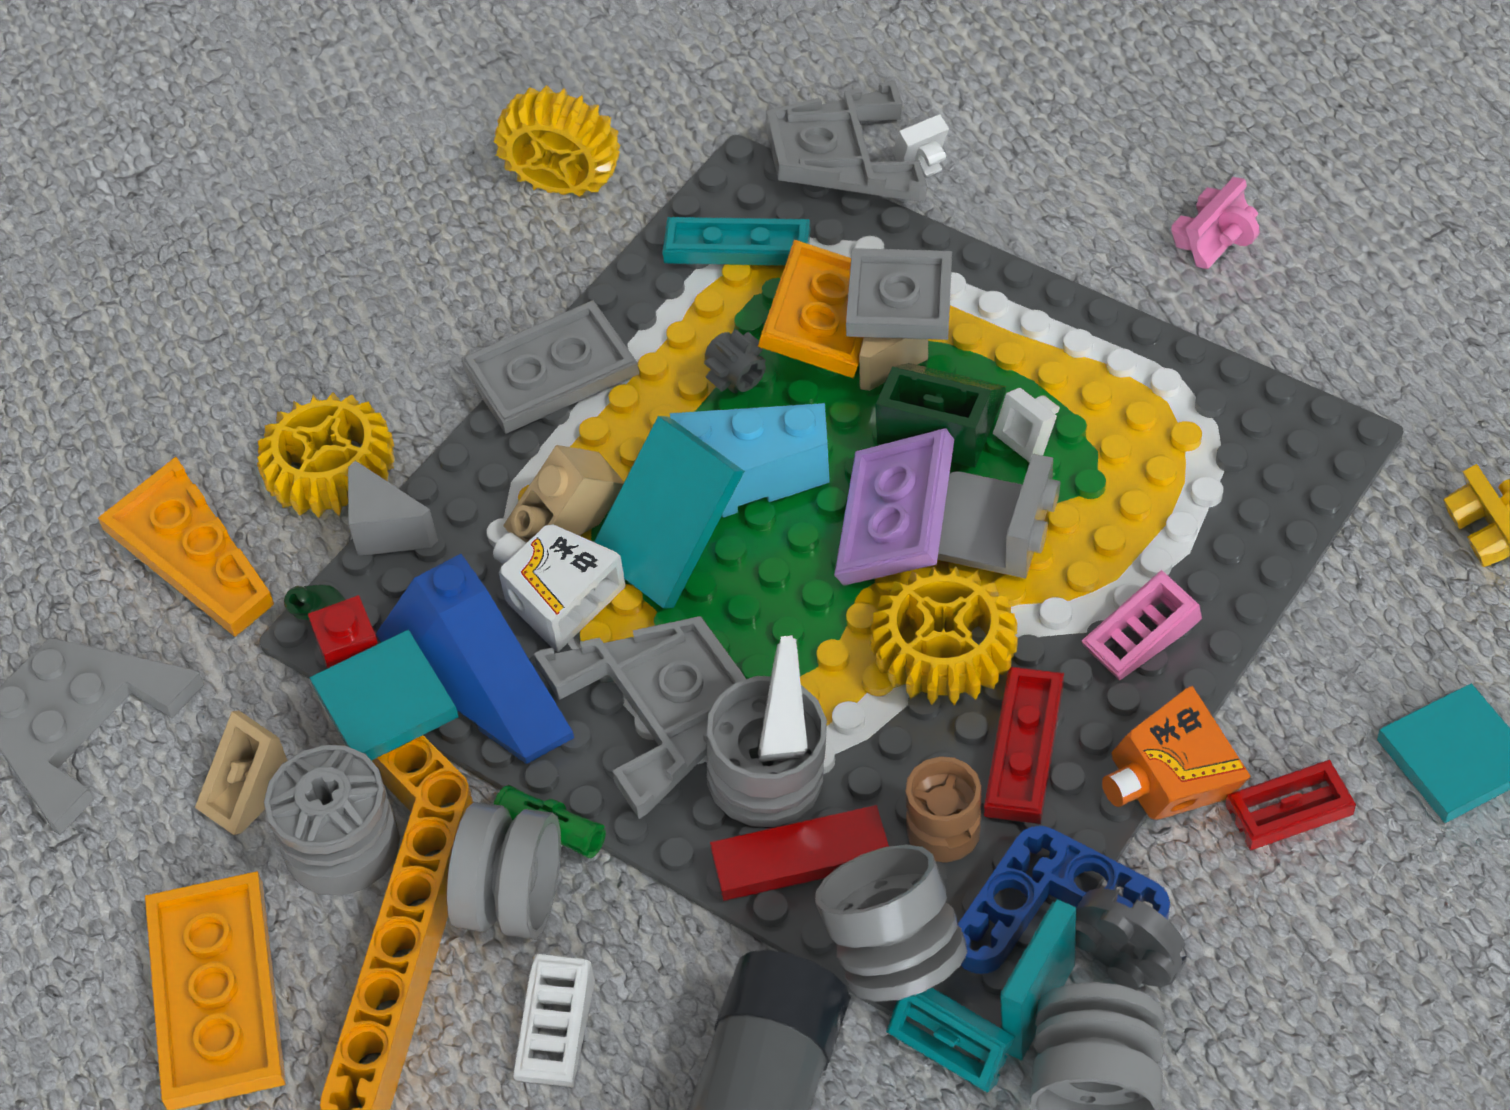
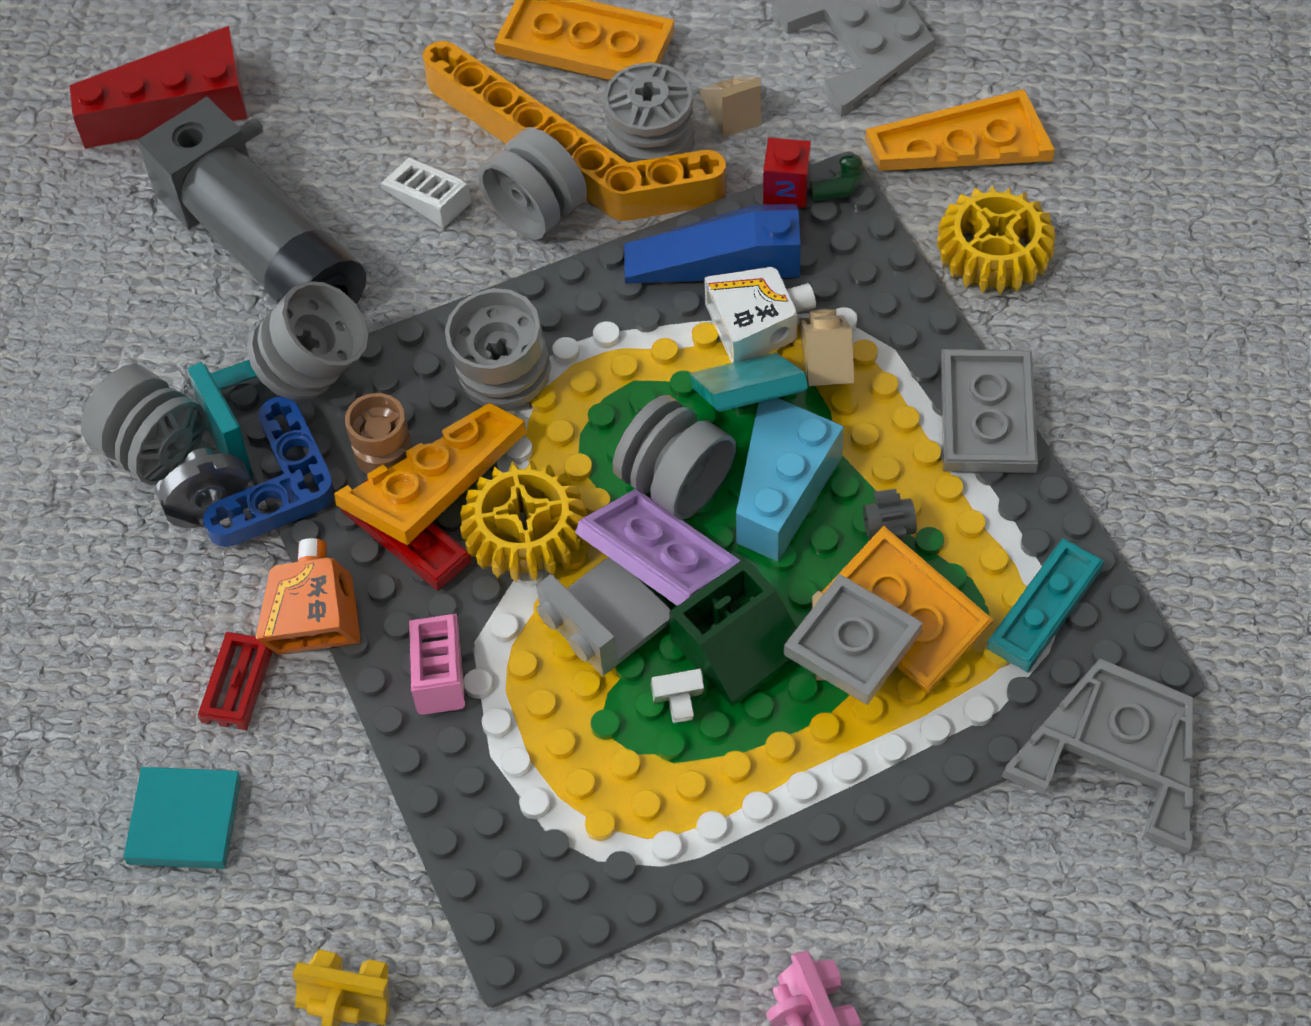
camera: 120 degrees right, 5 degrees up
(384, 516) = (899, 236): light grey slope -> none
(384, 696) = (717, 168): teal tile -> none
(557, 142) = (1245, 511): yellow gear -> none
(576, 832) = (569, 242): green pin -> none
(671, 682) = (610, 345): light grey wing -> none
(784, 723) = (490, 335): white slope -> none
(794, 529) = (674, 456): none -> light grey wheel
(795, 852) = (423, 361): red tile -> none
(923, 143) = (1077, 817): white tile -> none
(996, 732) = (433, 474): none -> light orange wing

